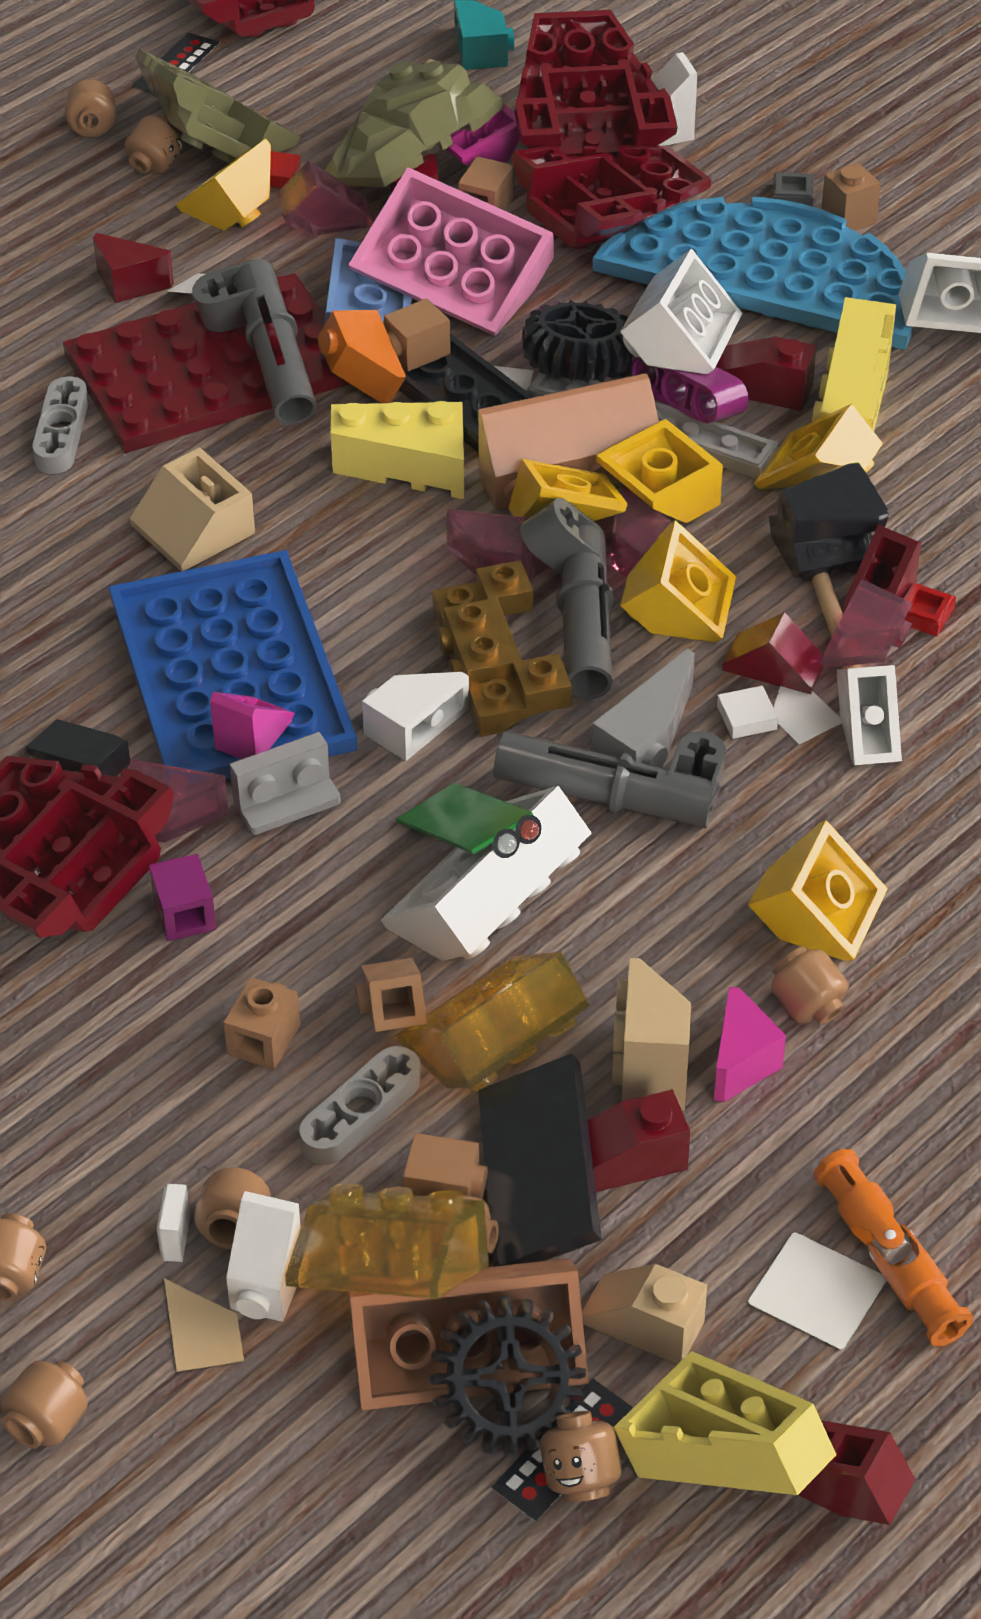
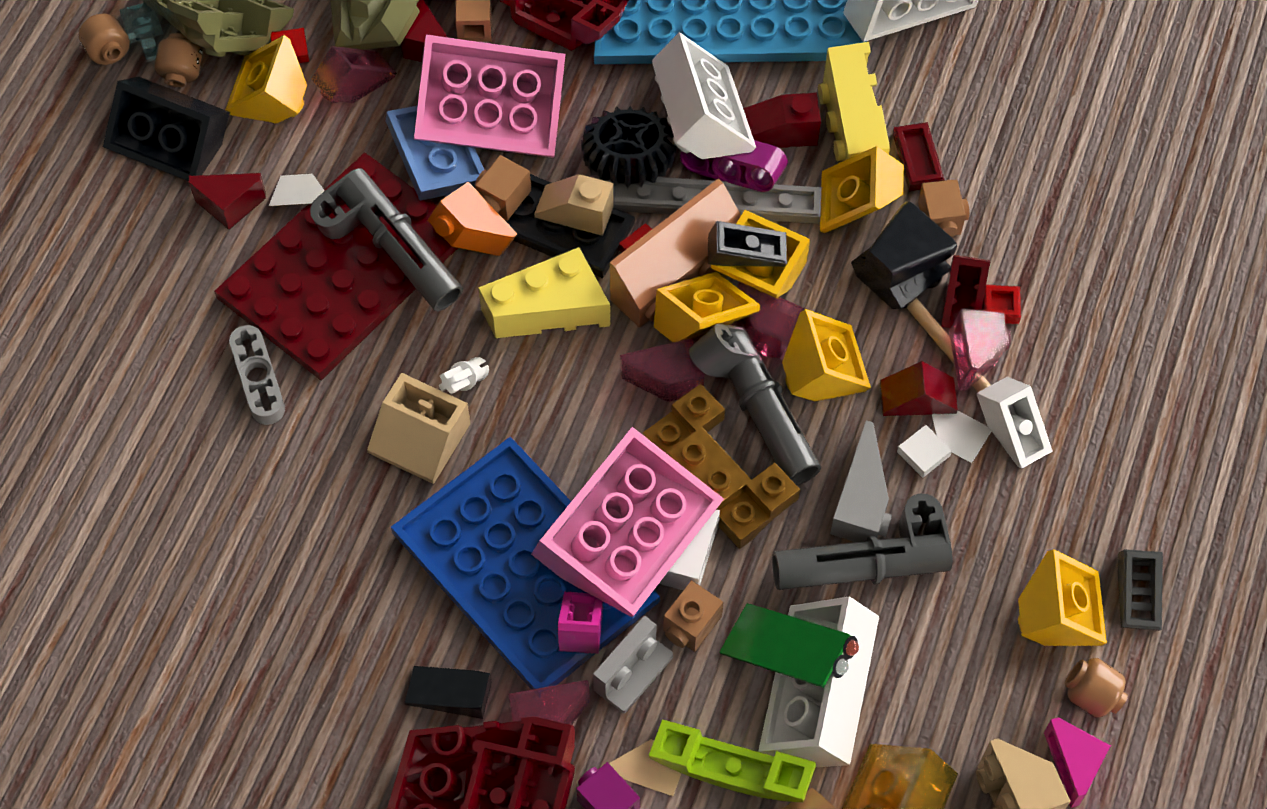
camera: 25 degrees left, 15 degrees up
(102, 192) = (164, 128): none -> black slope
(133, 106) = (142, 24): none -> clear light blue plate
(254, 895) = (642, 770): none -> tan sticker
(268, 478) = (463, 375): none -> white axle
(330, 915) = (731, 766): none -> lime slope
(351, 643) = (627, 524): none -> bright pink slope
(382, 769) = (692, 616): none -> medium nougat brick
(492, 371) = (577, 203): none -> tan slope
(643, 446) = (746, 246): none -> black slope
(908, 497) = (944, 205): none -> medium nougat brick
(911, 450) = (917, 155): none -> dark red tile
(939, 886) = (1154, 562): none -> dark grey slope

